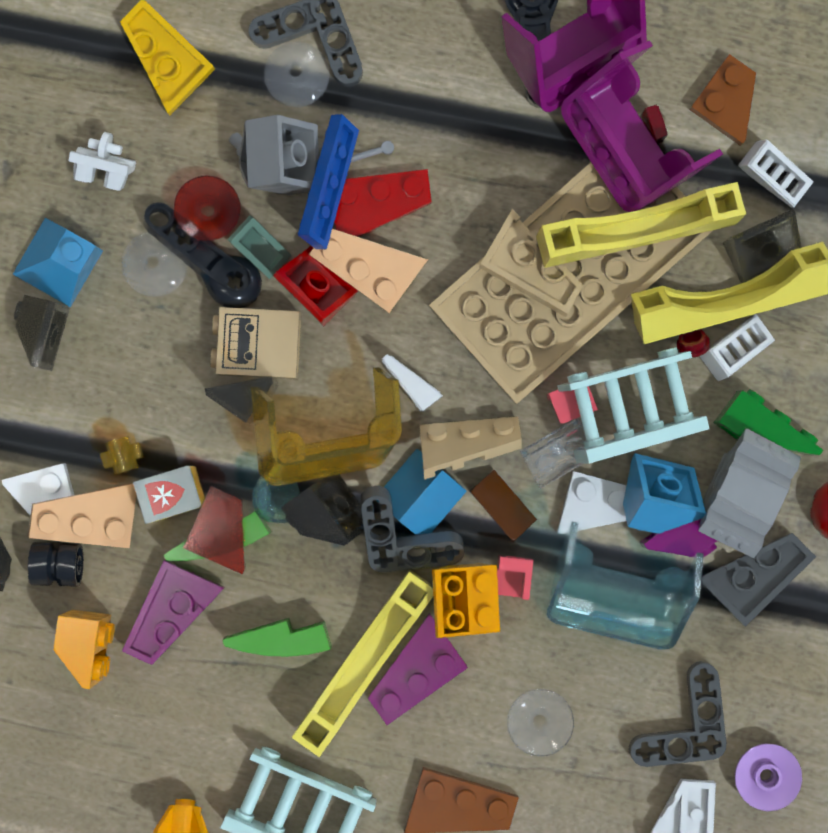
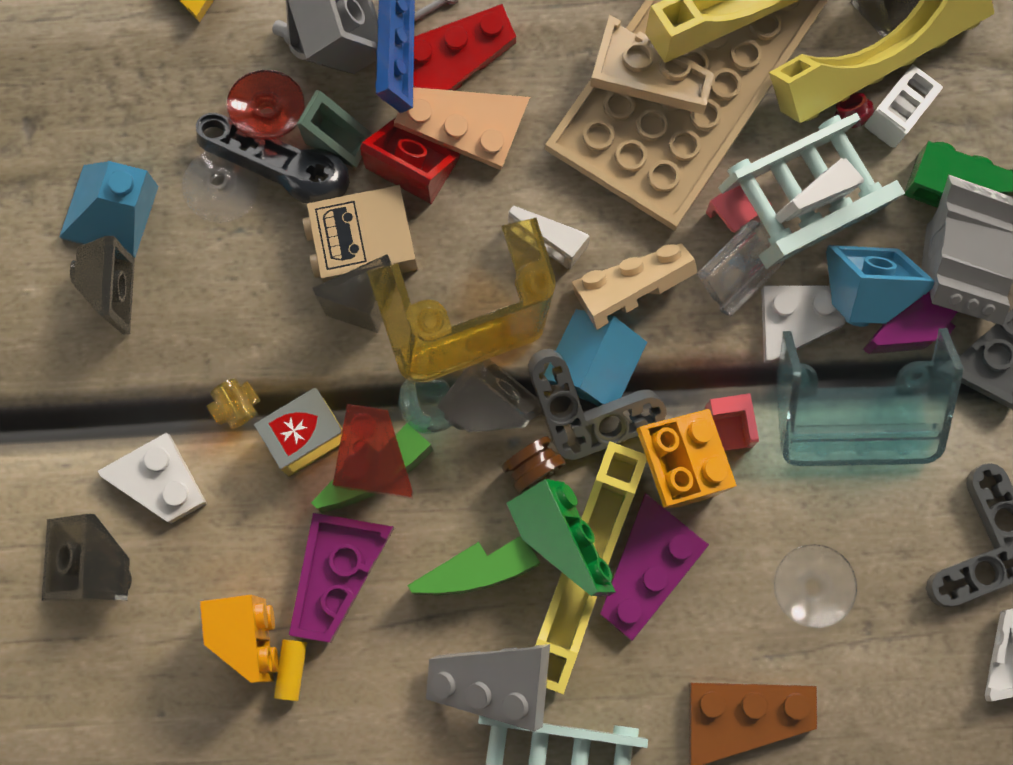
camera: 15 degrees left, 10 degrees down
(55, 564) = (178, 552): black wheel -> none
(87, 518) = (209, 487): light nougat wing -> none
(88, 160) = (117, 89): white hips -> none
(116, 676) = (290, 670): none -> yellow axle
(268, 734) = (493, 684): none -> light grey wing
(346, 570) = (533, 464): none -> reddish brown wheel
(349, 630) = (554, 528): none -> green slope
(503, 505) = (693, 347): reddish brown slope -> none
(642, 413) = (828, 187): none -> white slope

